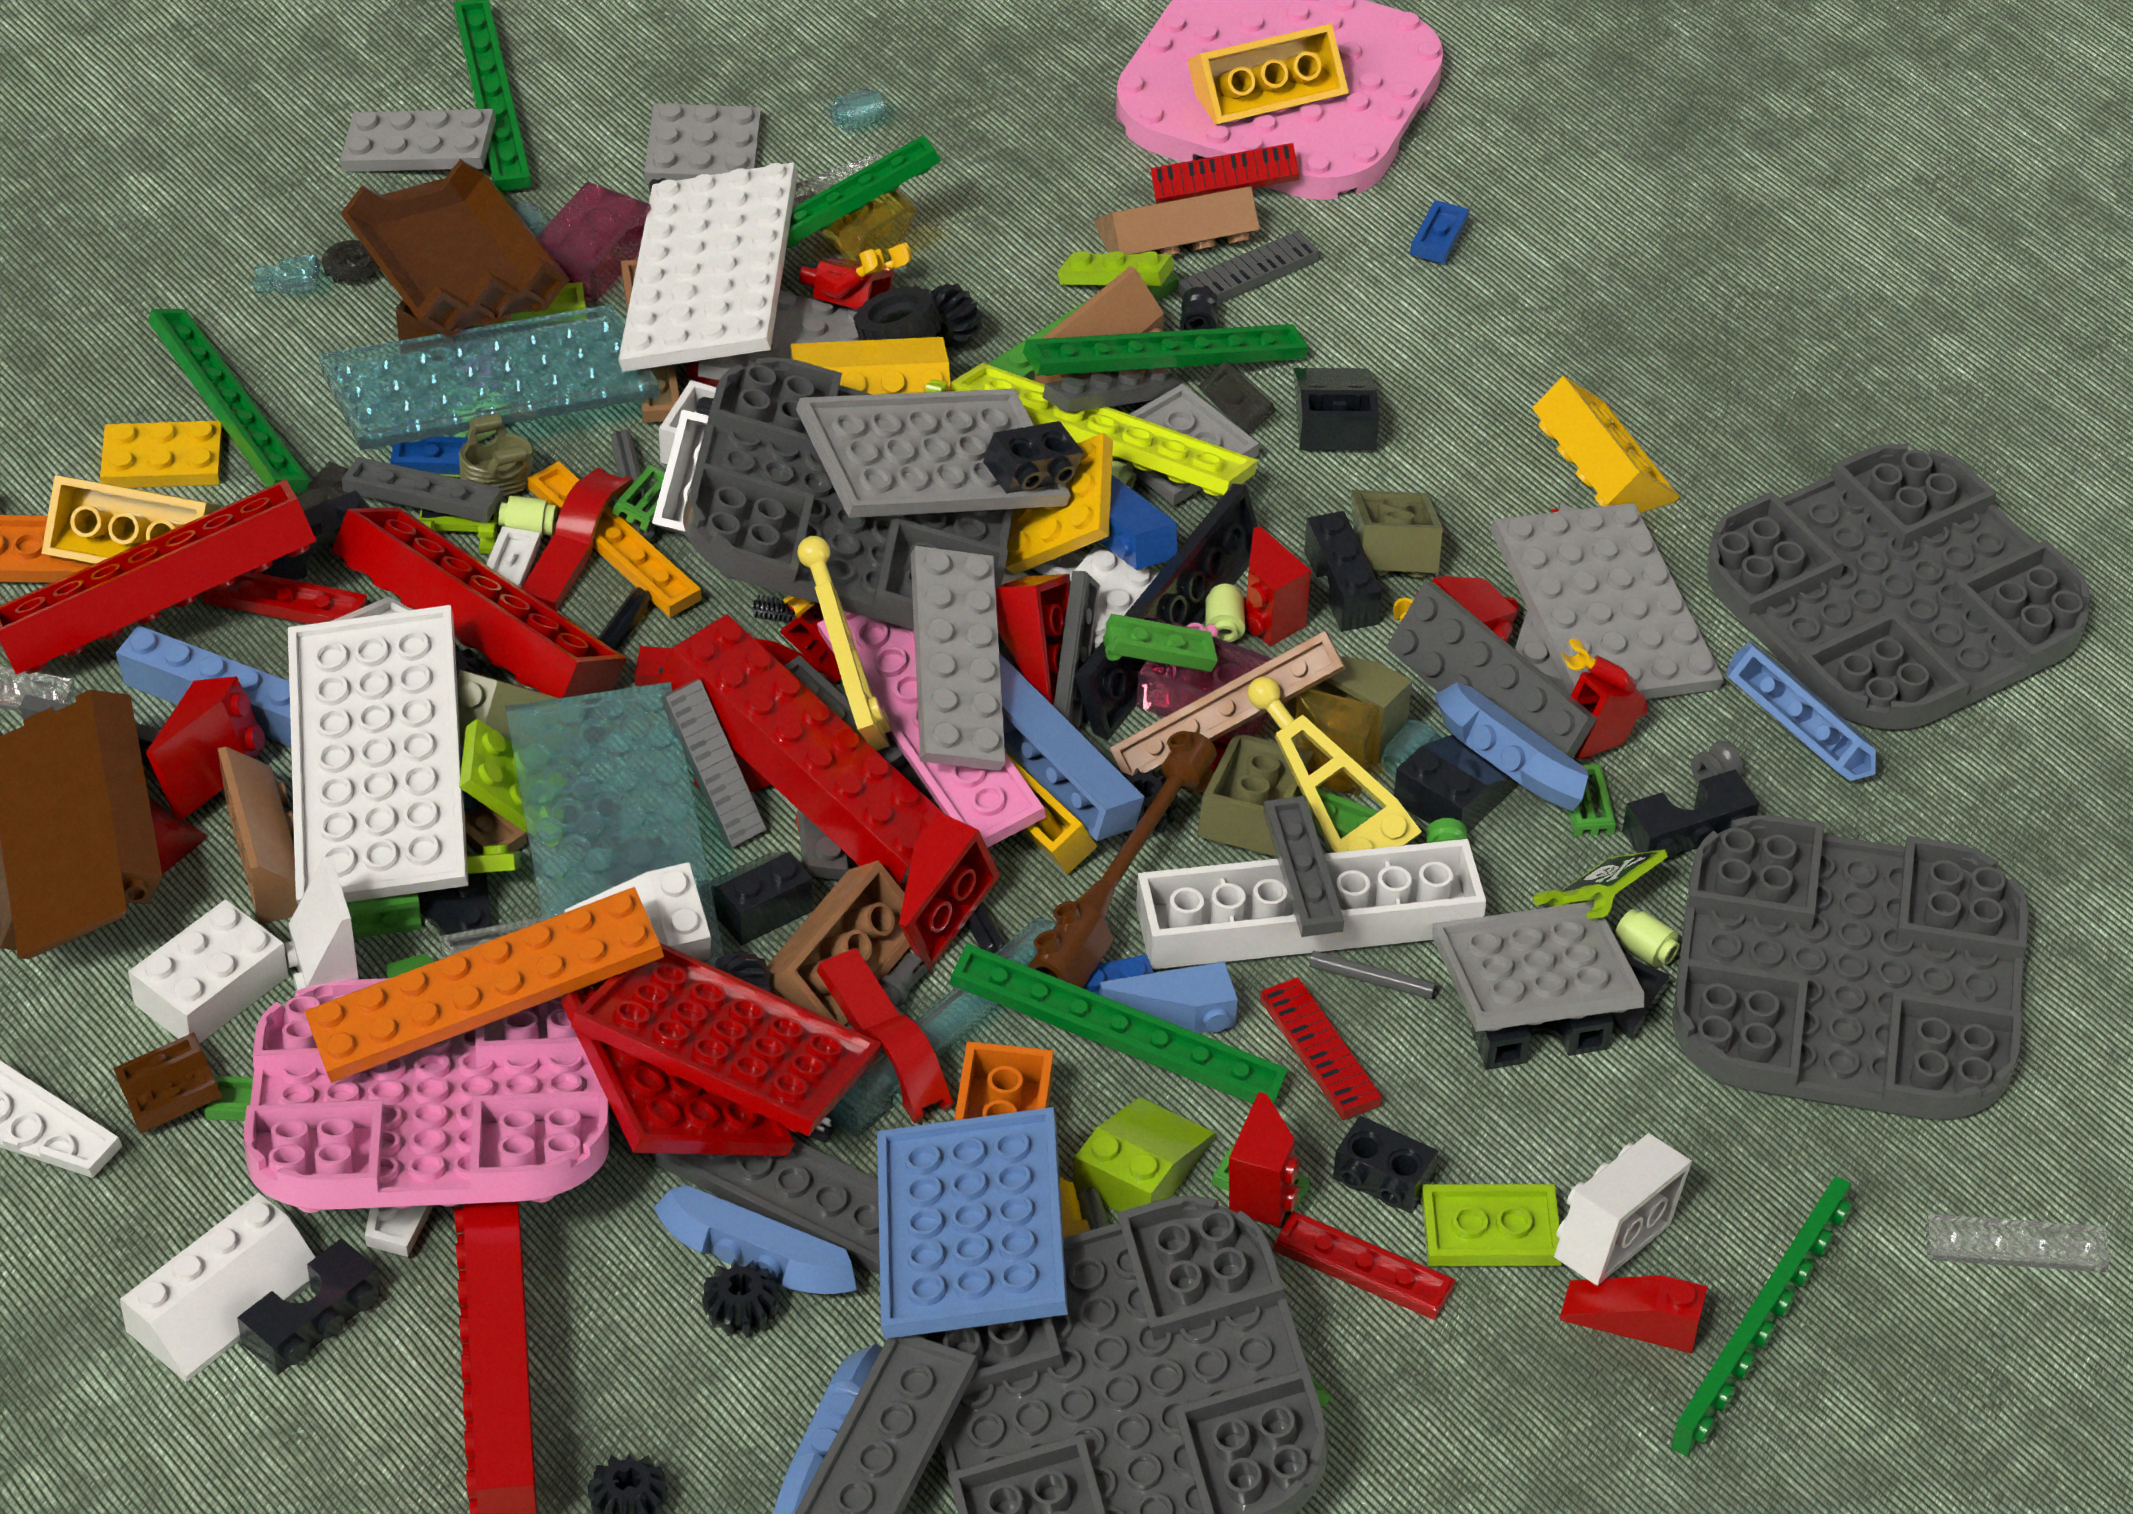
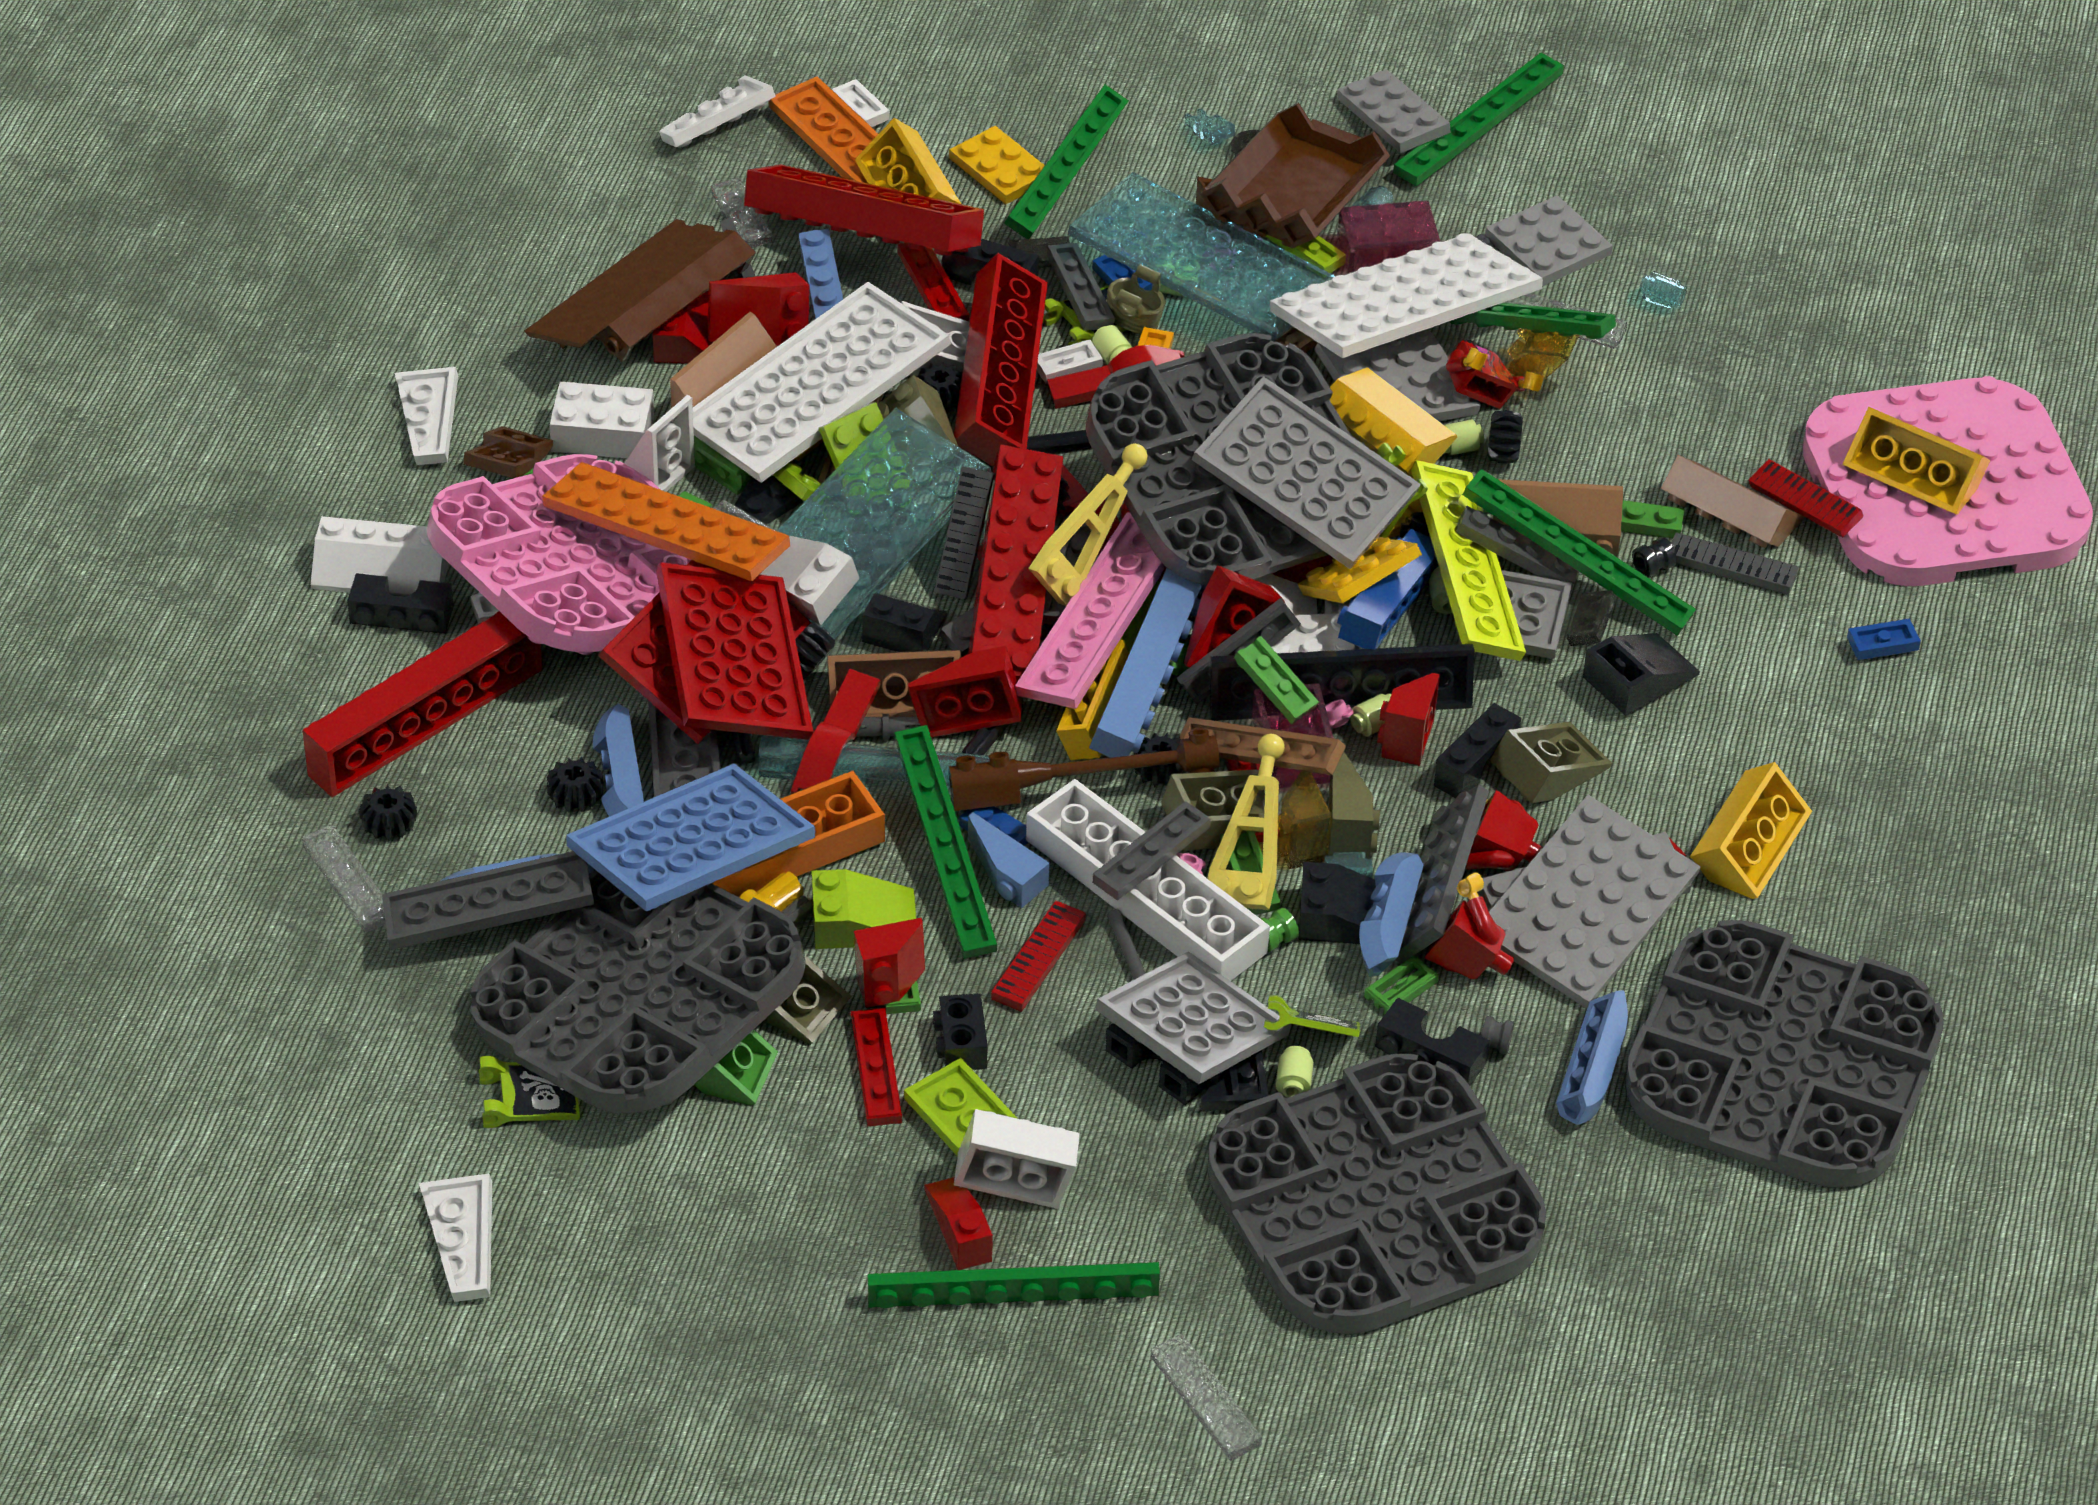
camera: 55 degrees right, 0 degrees up
(898, 315) = (1459, 408): black tyre -> none
(957, 658) = (1139, 581): light grey plate -> none
(1033, 457) = (1350, 519): black brick -> none
(1101, 269) = (1644, 492): lime plate -> none

